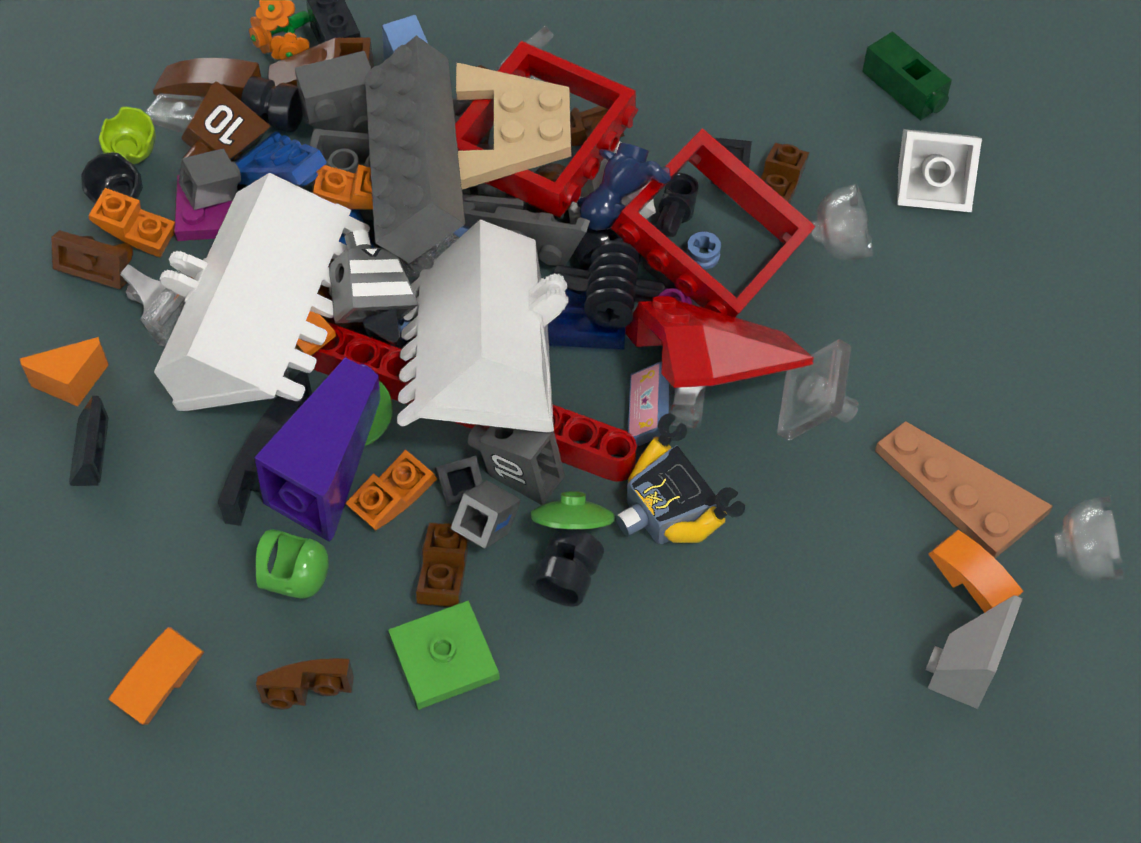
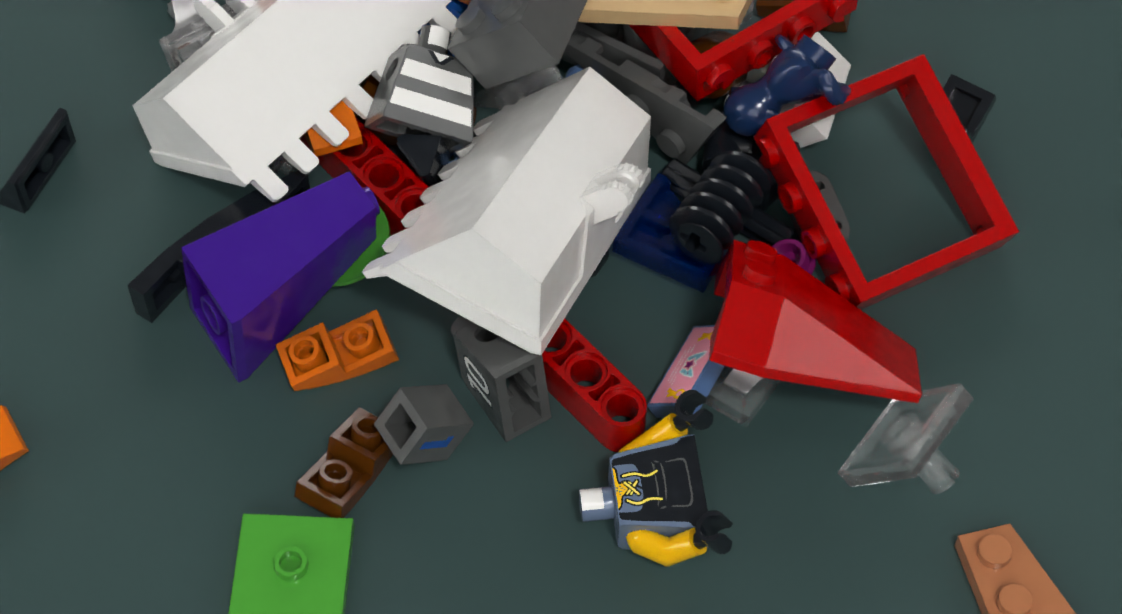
camera: 25 degrees right, 0 degrees up
(67, 370) = (57, 69): orange slope -> none
(290, 683) = (109, 528): reddish brown slope -> none
(298, 567) = (182, 401): bright green helmet -> none
(458, 478) = (422, 366): black slope -> none
(567, 568) = (494, 522): black wheel -> none
(572, 513) = (525, 466): bright green dish -> none
(677, 203) = (859, 140): black axle -> none
(704, 240) = (871, 195): medium blue bush -> none
(784, 169) = (1021, 150): reddish brown slope -> none
(843, 224) = (1060, 243): clear cylinder -> none

